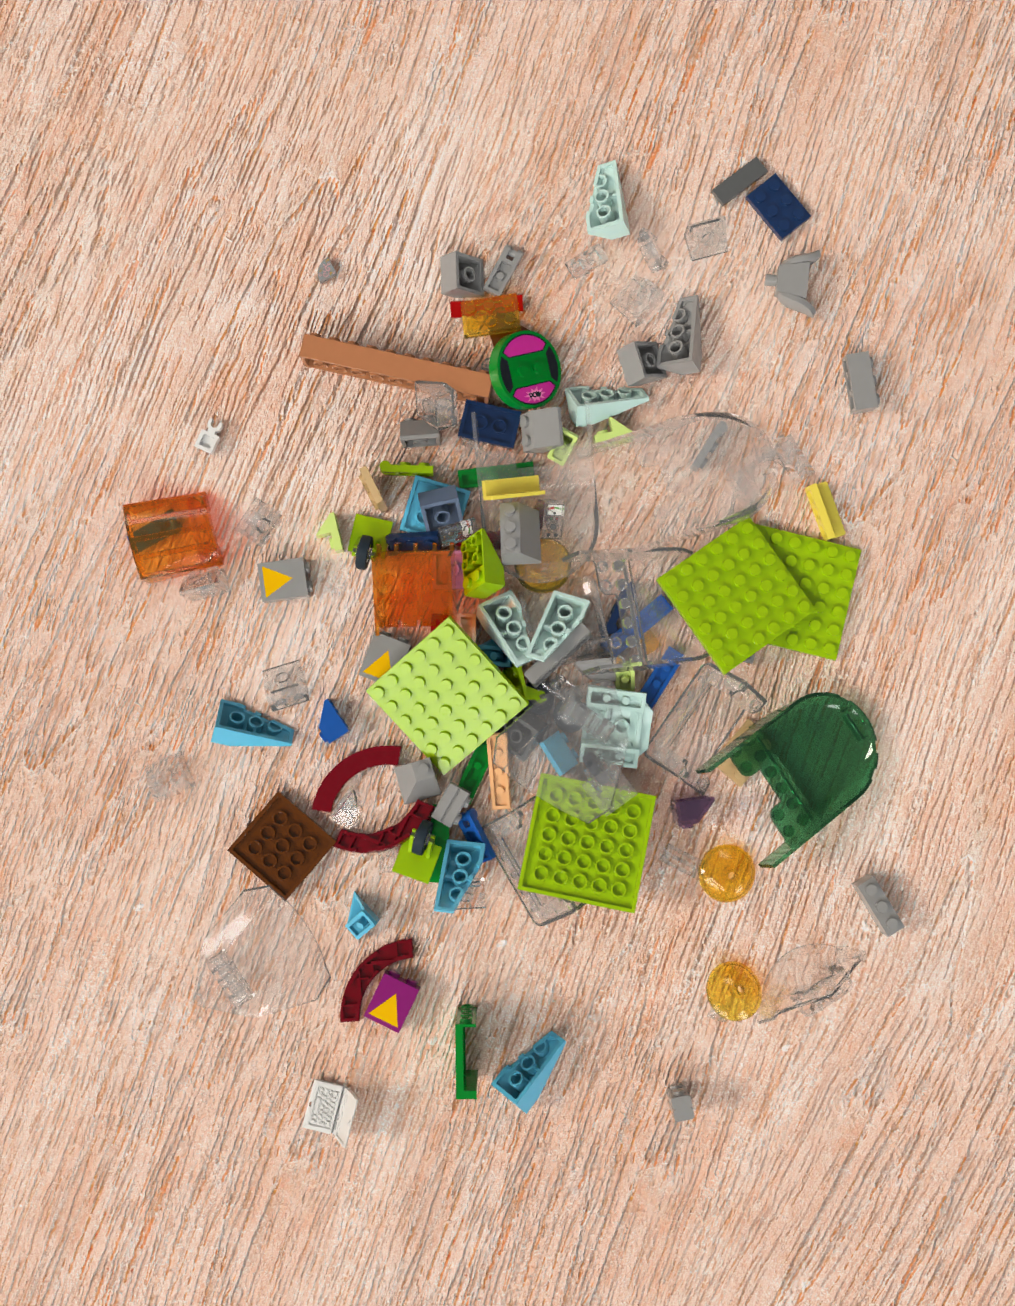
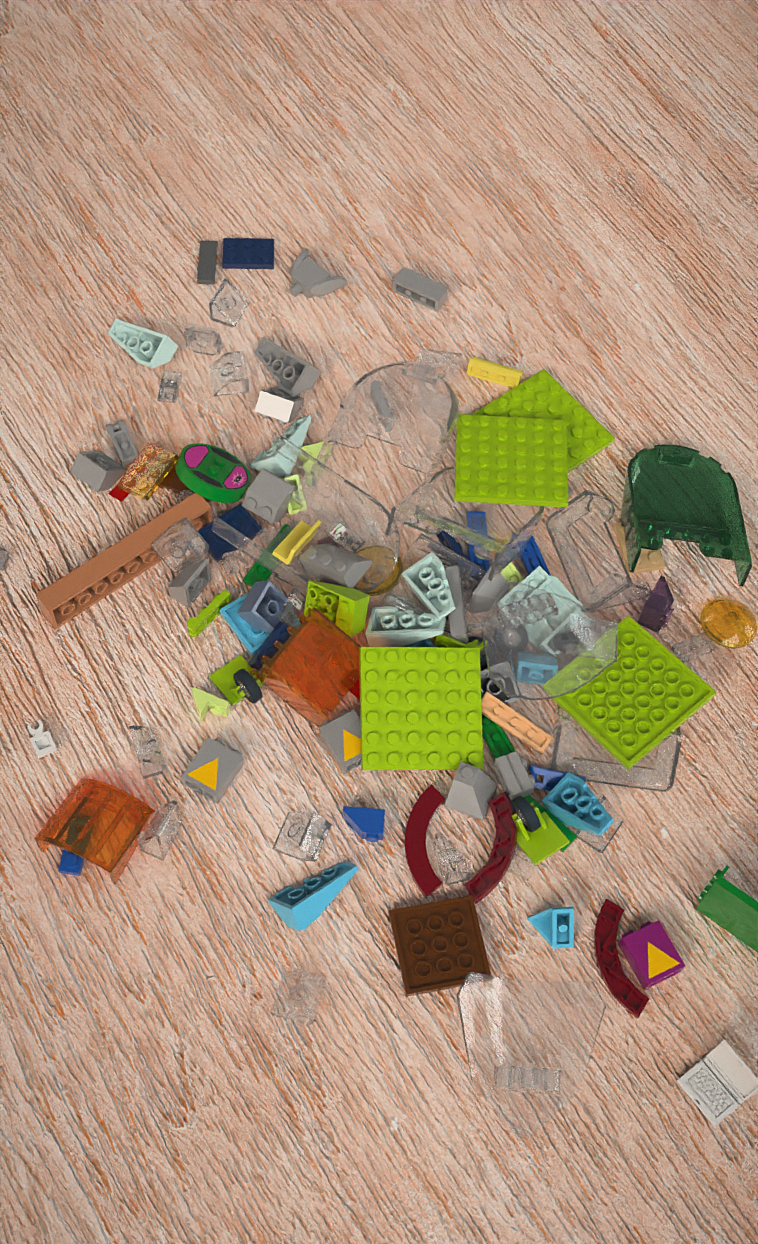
camera: 50 degrees left, 25 degrees down
(372, 490) = (204, 640): tan plate -> none

